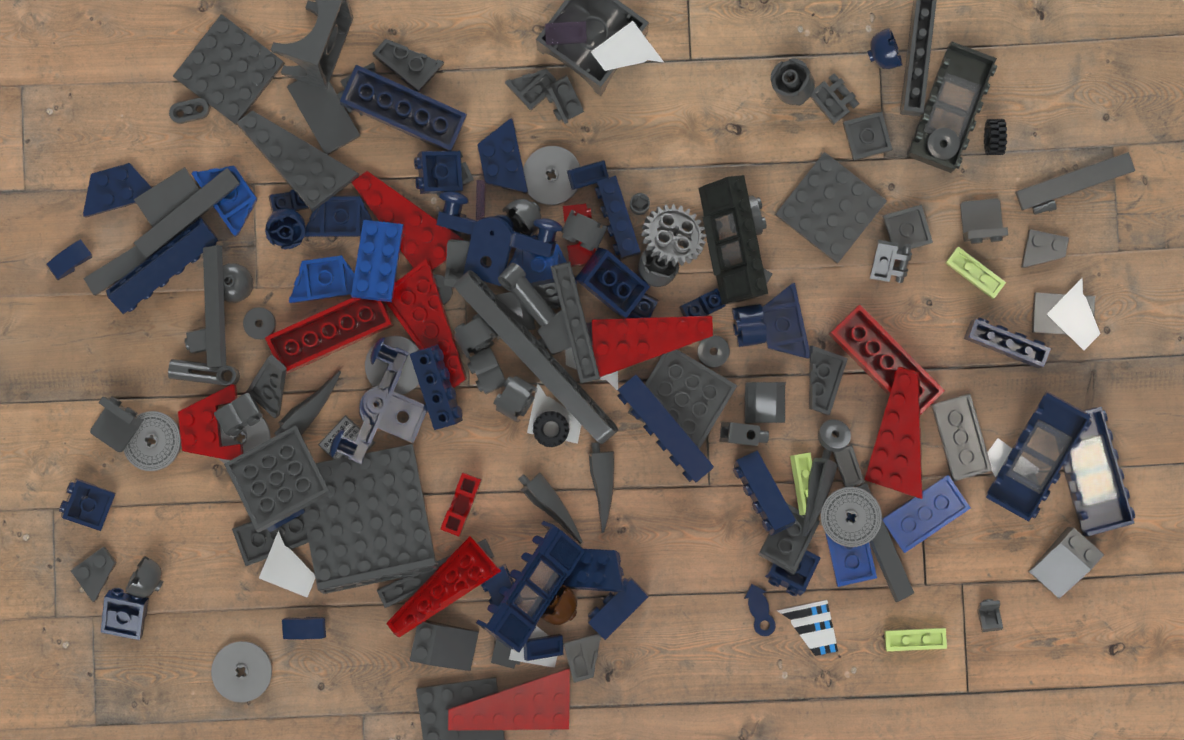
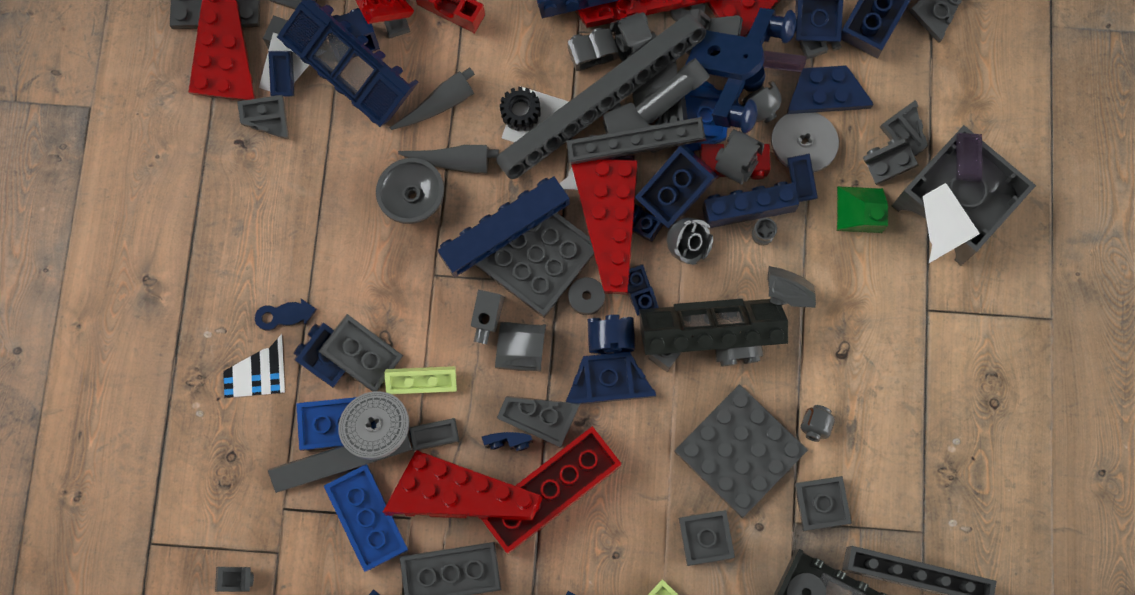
camera: 95 degrees right, 10 degrees down
(515, 398) = (558, 71): dark grey brick -> none
(562, 607) = (322, 95): reddish brown cylinder -> none
(597, 571) = (354, 135): dark blue wing -> none
(608, 121) = (861, 209): none -> green slope
(616, 608) = (311, 152): dark blue brick -> none
(636, 529) = (407, 178): none -> dark grey dish
(677, 220) = (708, 254): light grey gear -> none
(691, 176) = (790, 288): none -> dark grey slope
(764, 493) = (415, 328): dark blue brick -> none
(792, 81) = (894, 419): dark grey brick -> none
(801, 145) = (817, 423): none -> dark grey head
(820, 483) = (418, 397): dark grey piece -> none
(830, 103) = (865, 463): dark grey plate -> none
(832, 443) = (464, 413): dark grey piece -> none
(846, 396) = (516, 440): none -> dark blue slope
(884, 260) = (671, 503): plate -> none
(885, 50) = (926, 535): dark blue cylinder -> none
(915, 639) = (221, 487): yellowish green plate -> none

